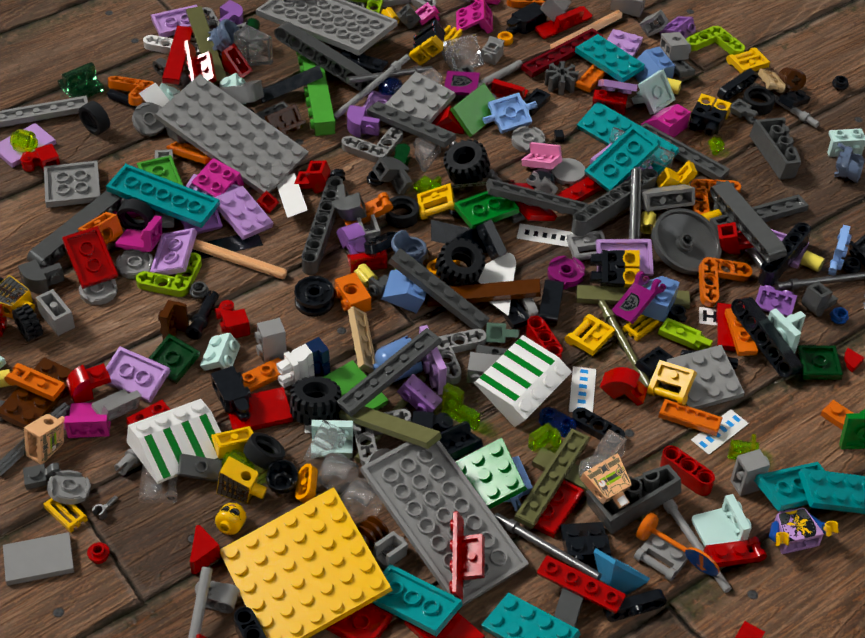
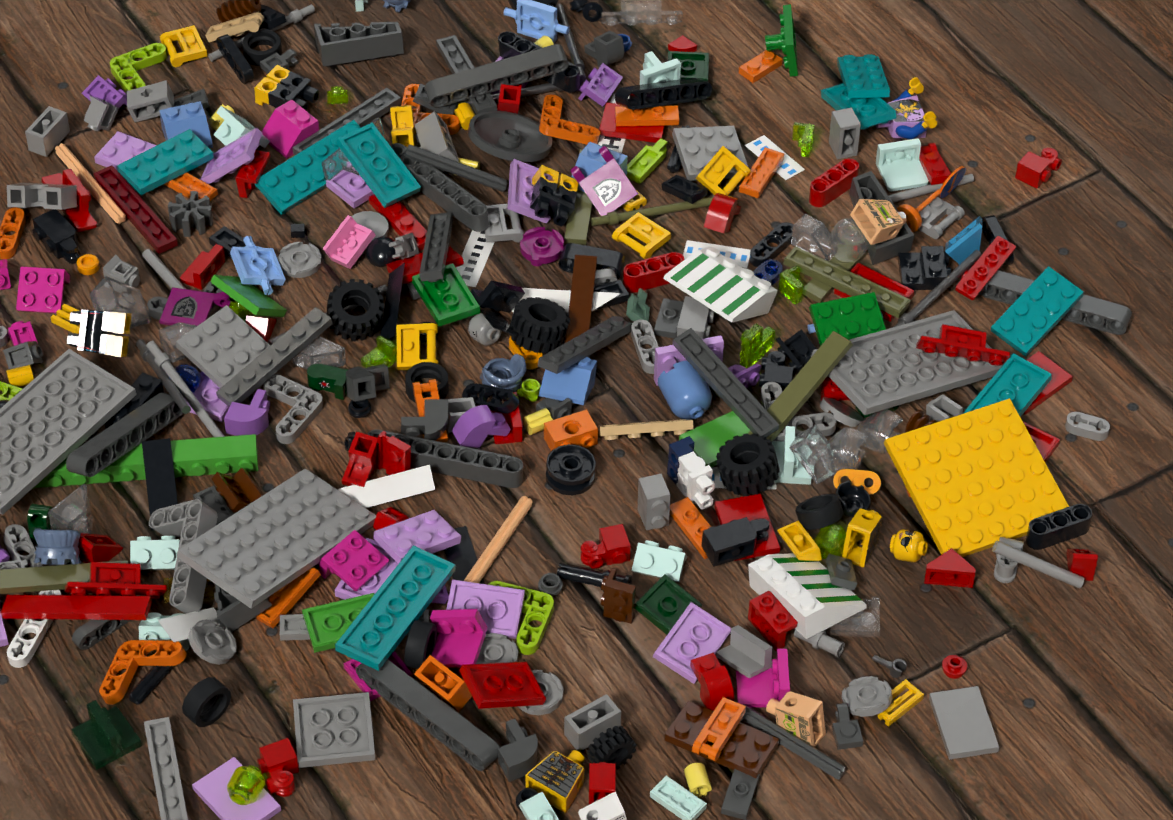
camera: 85 degrees left, 0 degrees up
(314, 190) = (393, 454): none -> red plate

